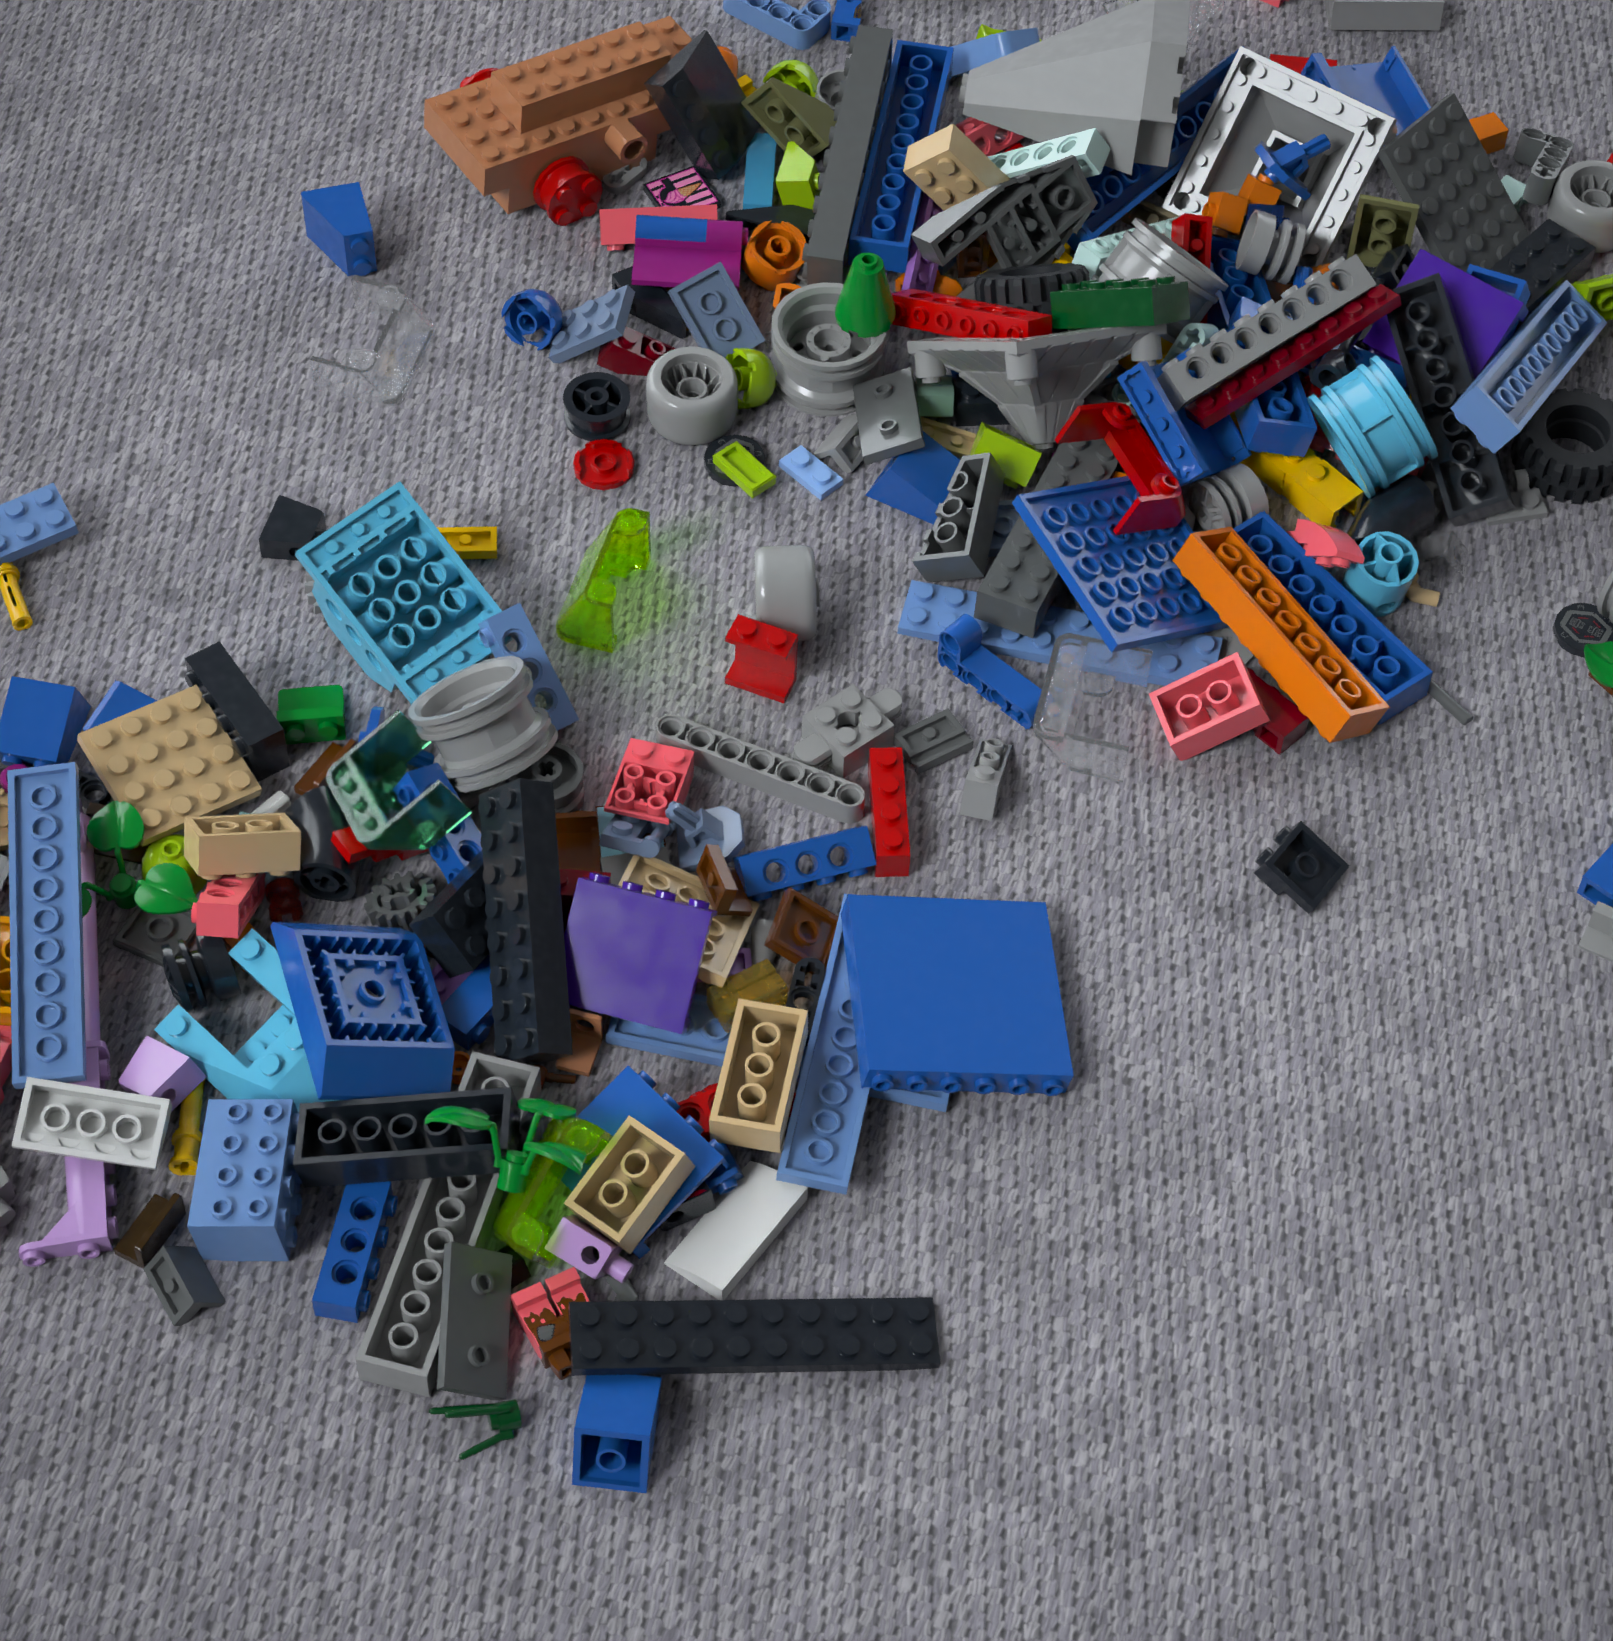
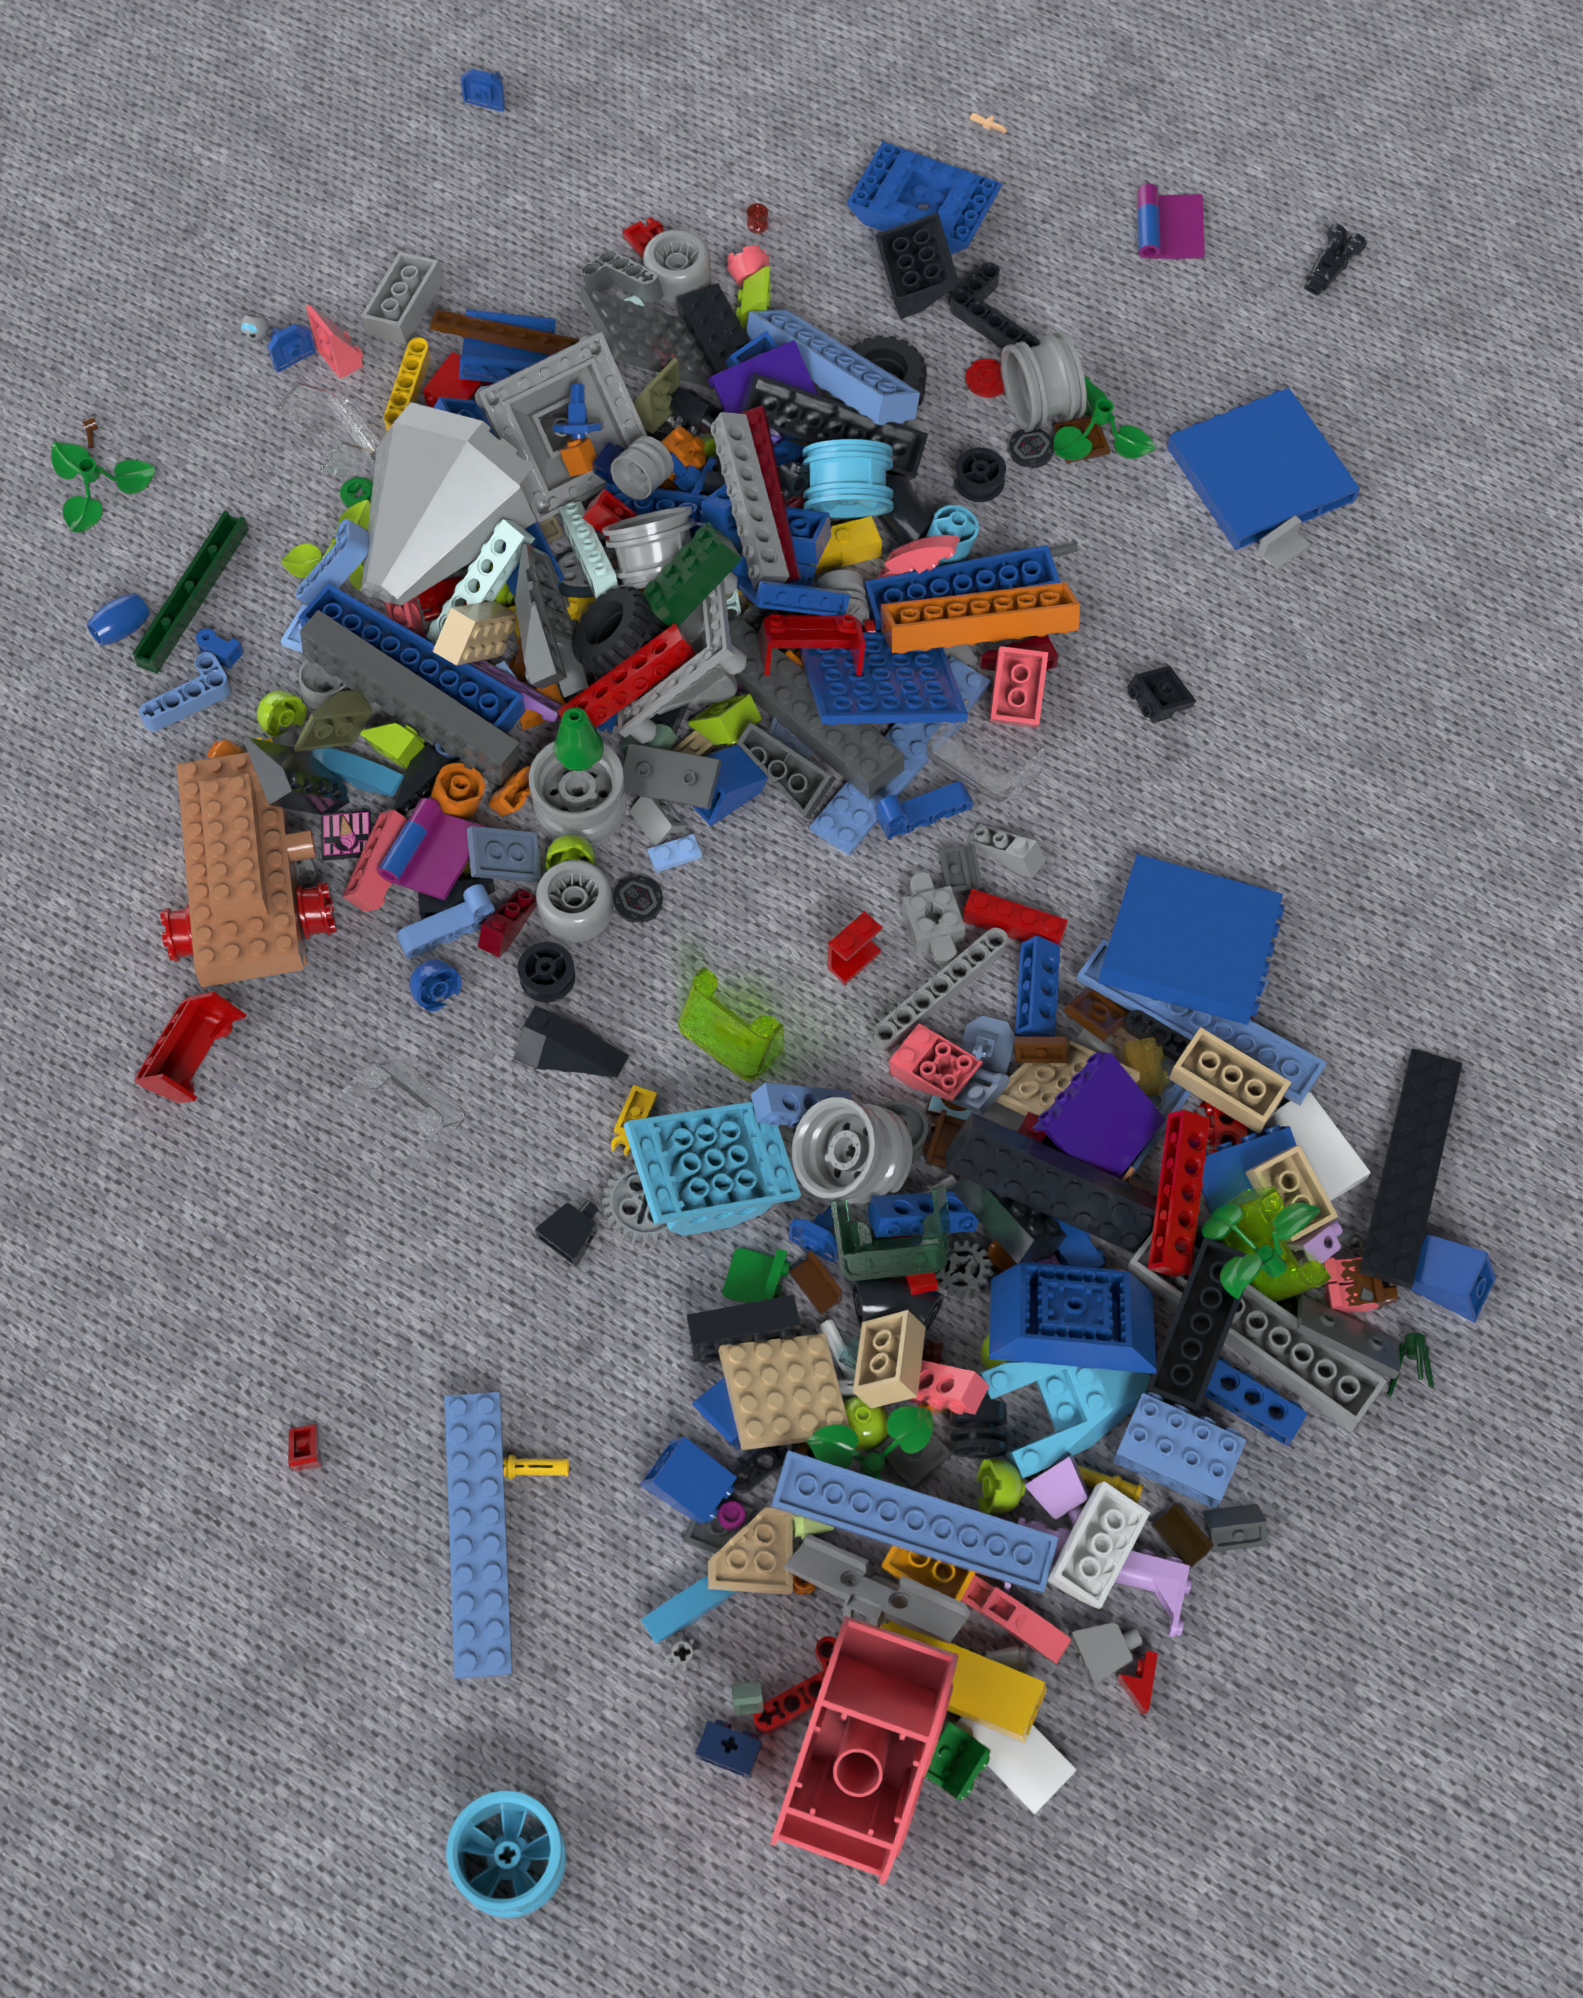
camera: 65 degrees left, 10 degrees up
(137, 1016) = (1002, 1484): none -> lime cylinder
(341, 227) = (268, 1088): blue slope -> none
(360, 156) = (185, 1044): none -> red windscreen
(515, 454) = (560, 1045): none -> black wedge
(592, 324) = (470, 941): sand blue plate -> none
(602, 473) = (598, 997): red tile -> none
(645, 313) = (448, 924): none -> medium blue beam
(657, 1023) = (1179, 1193): none -> red brick
(744, 469) = (656, 894): lime tile -> none
(787, 589) = (803, 908): light grey wheel -> none
(1227, 213) = (584, 483): orange brick -> none
(1287, 40) = (408, 380): none -> yellow beam
(1382, 73) = (499, 333): none -> reddish brown plate
(1490, 132) = (566, 299): orange brick -> none
(1502, 585) = (979, 474): none -> black wheel

